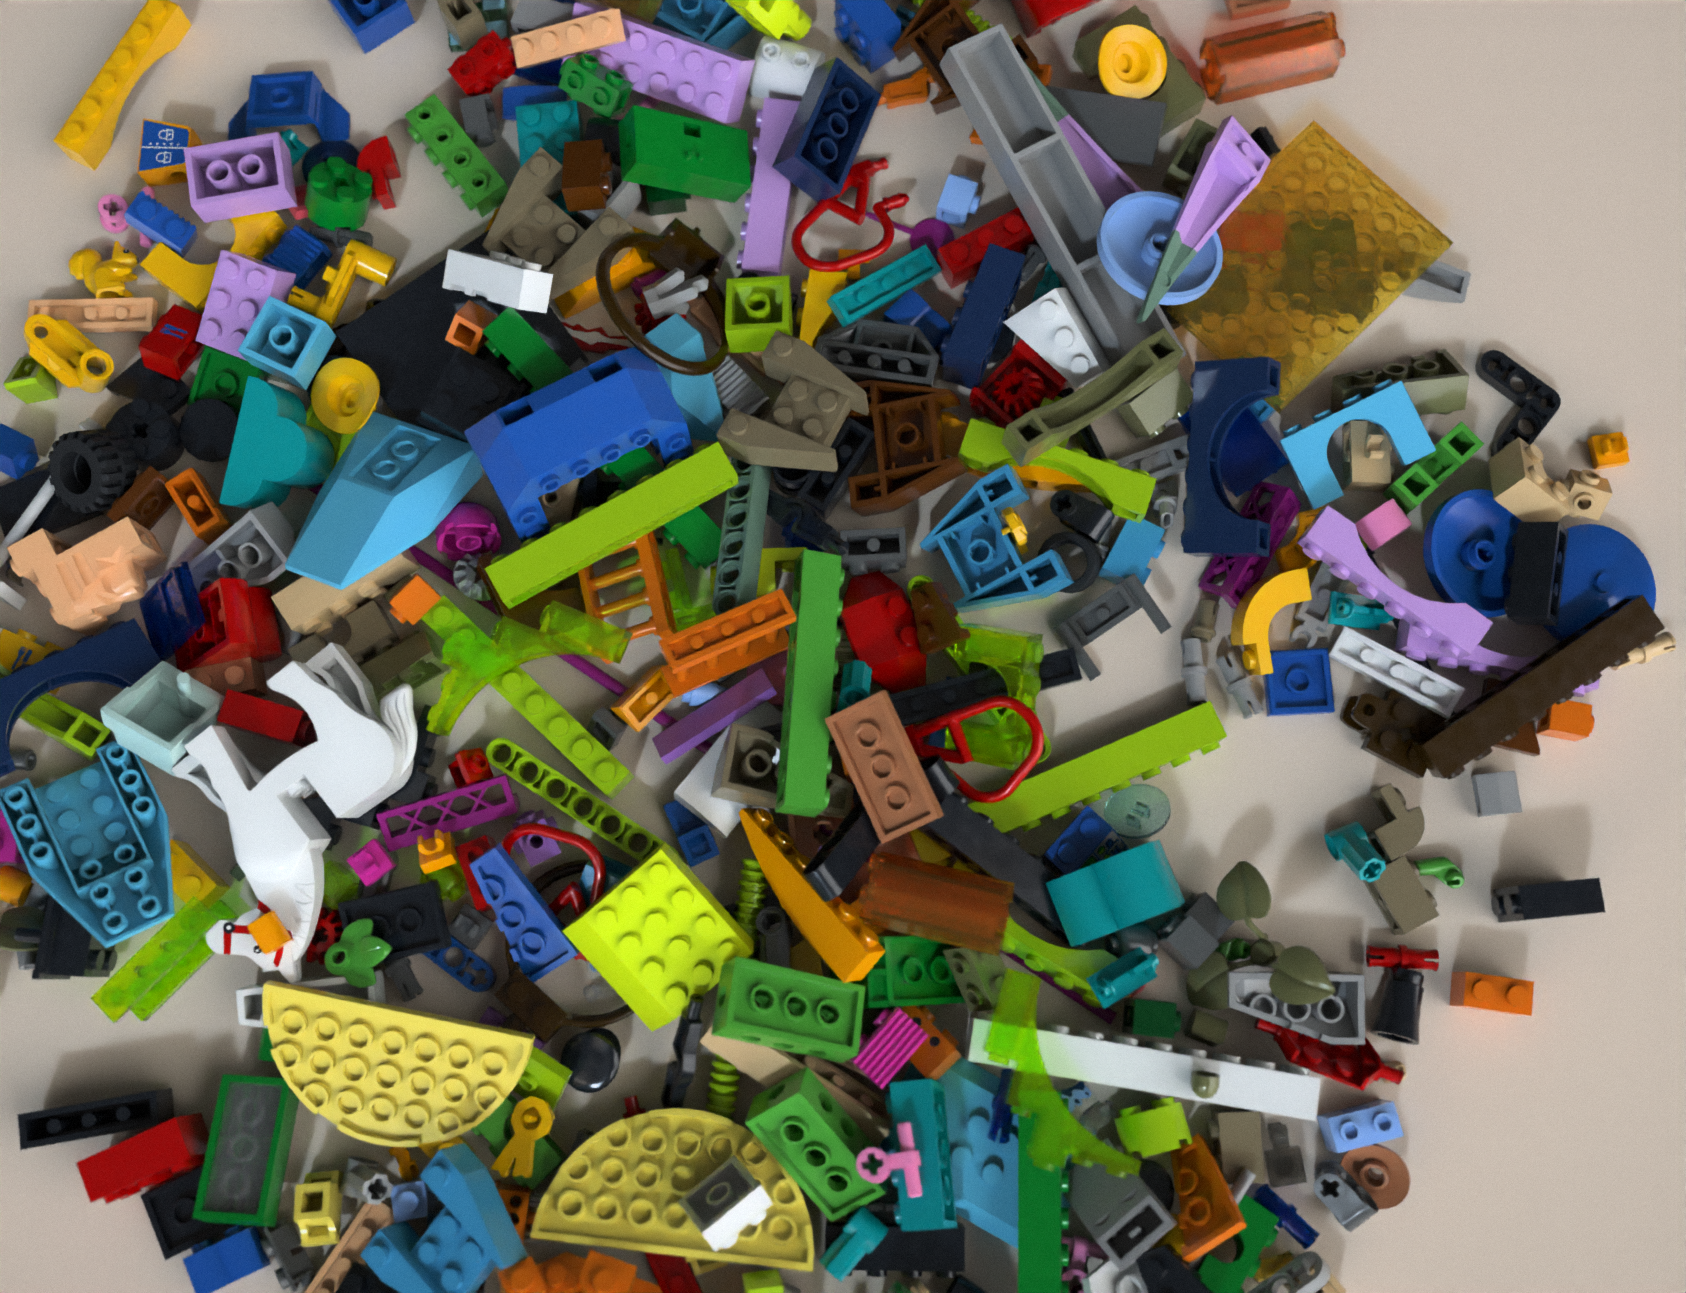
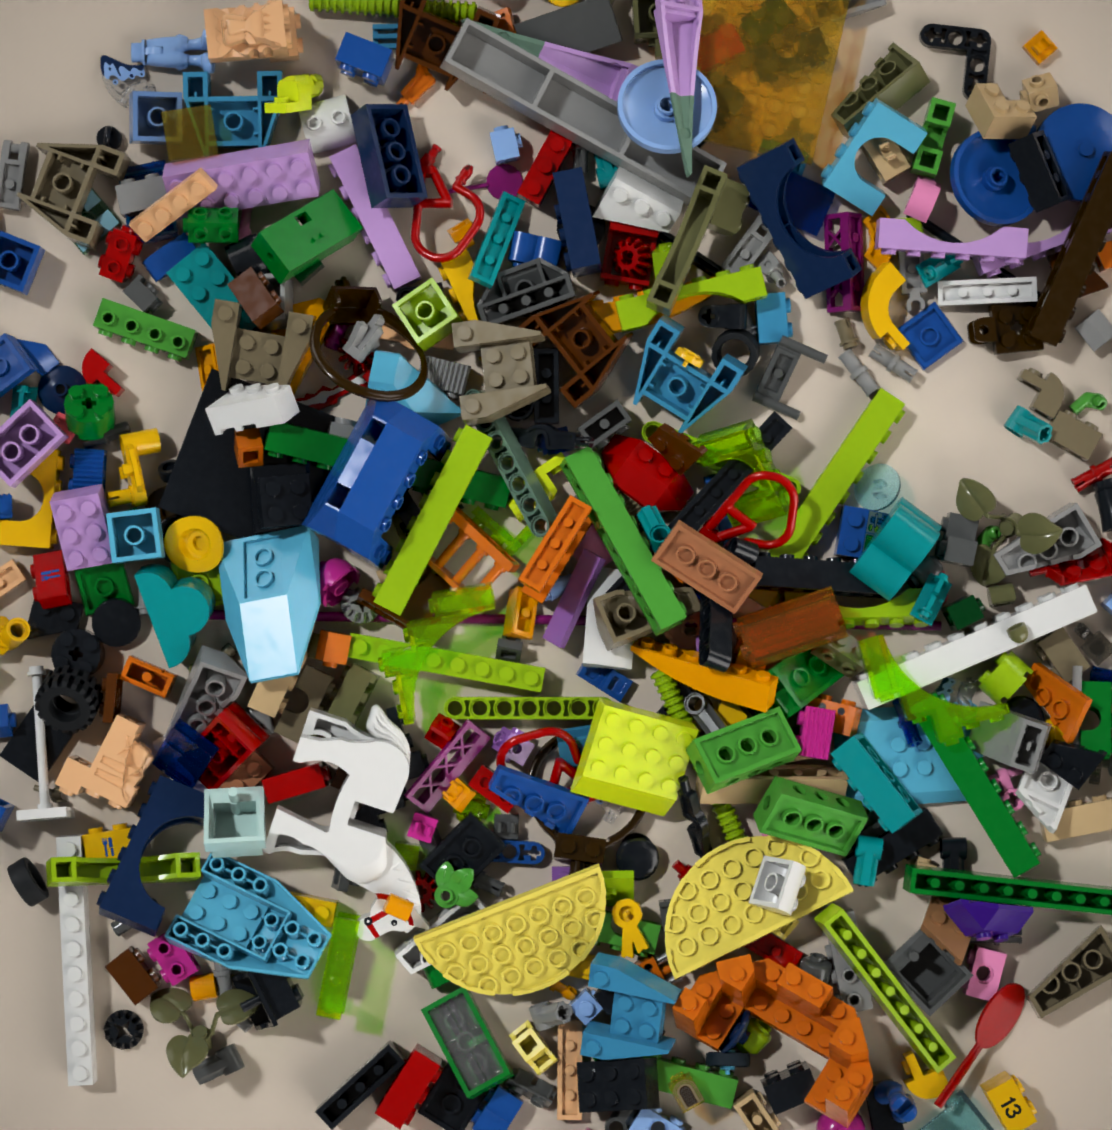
camera: 35 degrees left, 10 degrees up
(907, 1159) = (870, 790): bright pink piece -> none

